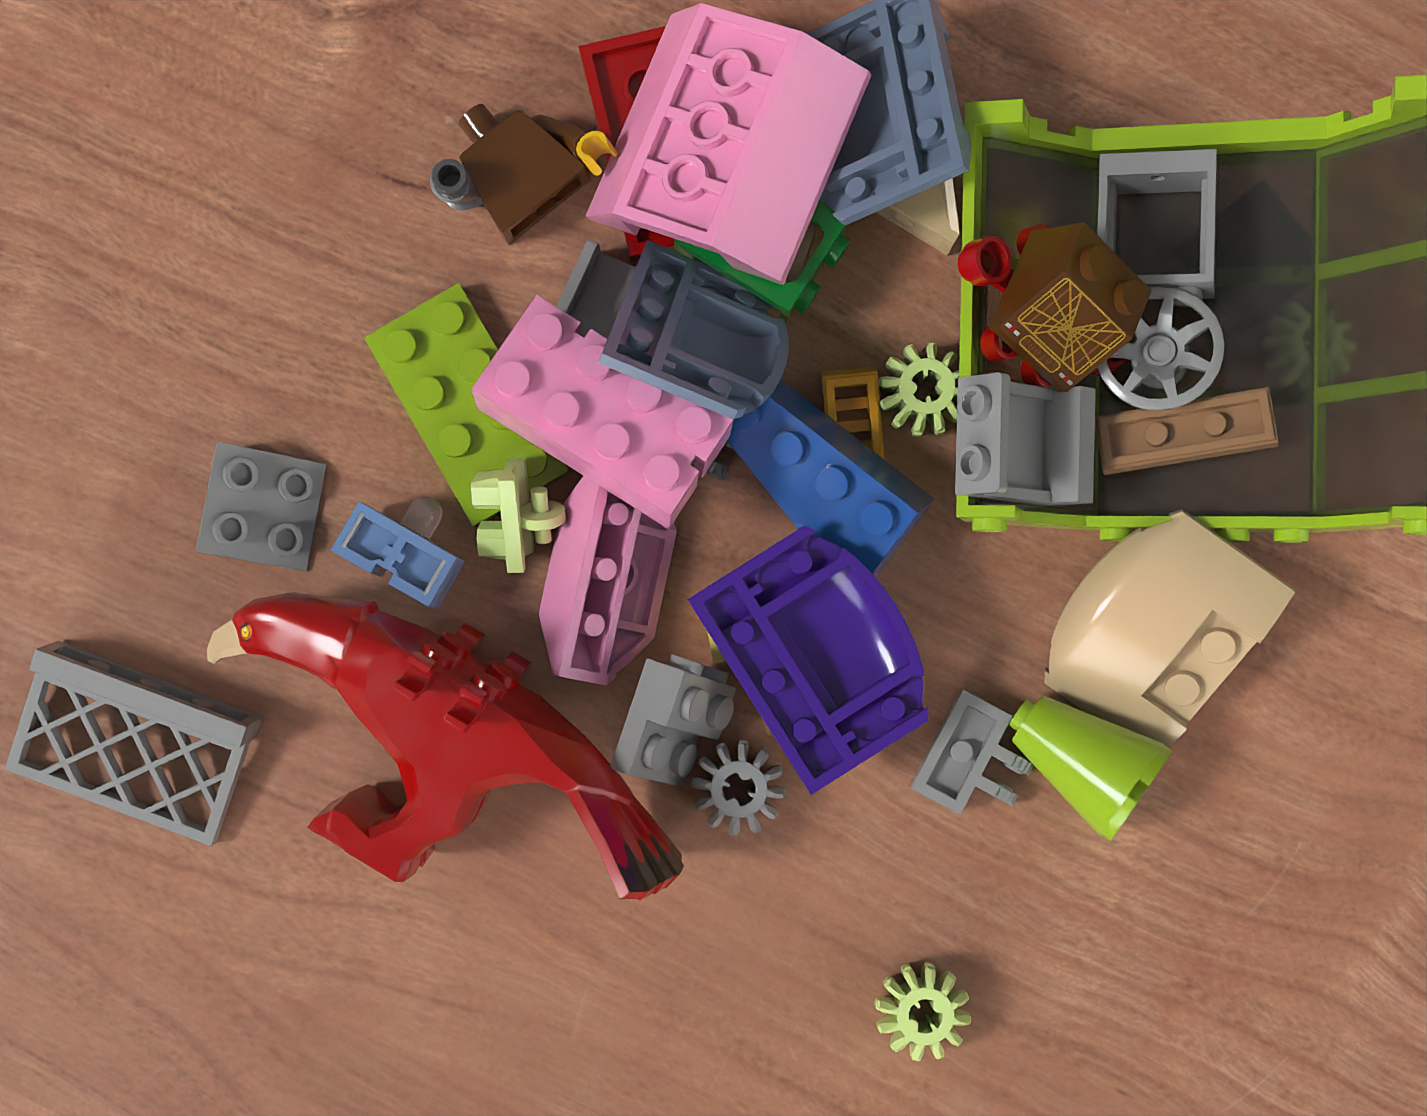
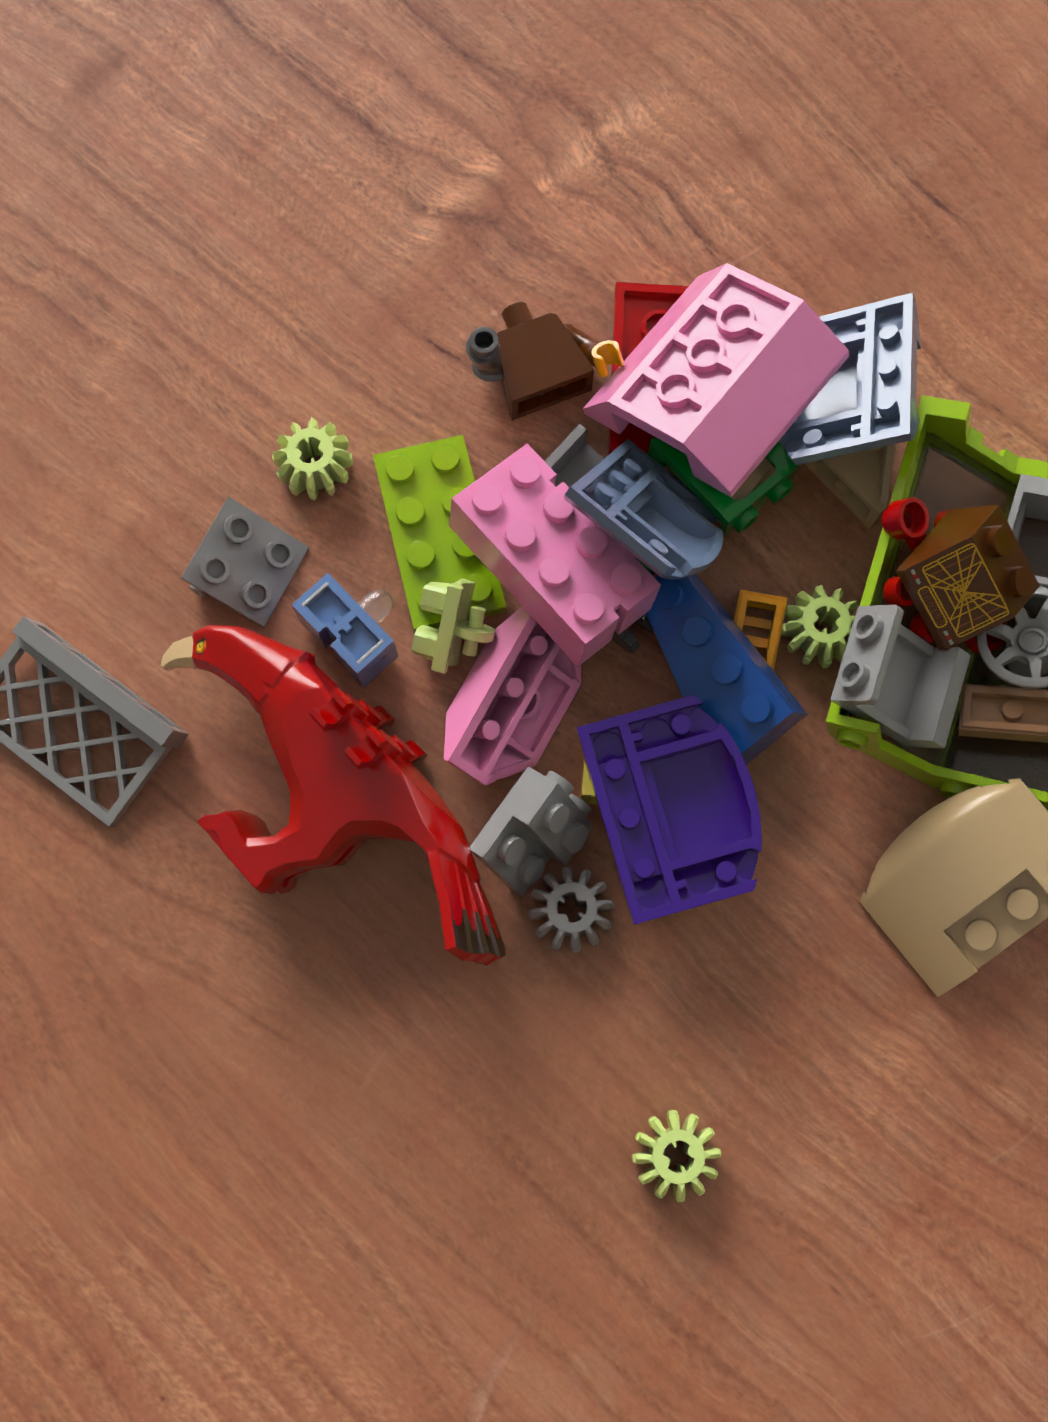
camera: 15 degrees right, 10 degrees down
(284, 382) = (307, 444): none -> yellowish green gear
(963, 751) = (773, 938): light grey hinge -> none
(1088, 760) = (884, 976): lime cone -> none

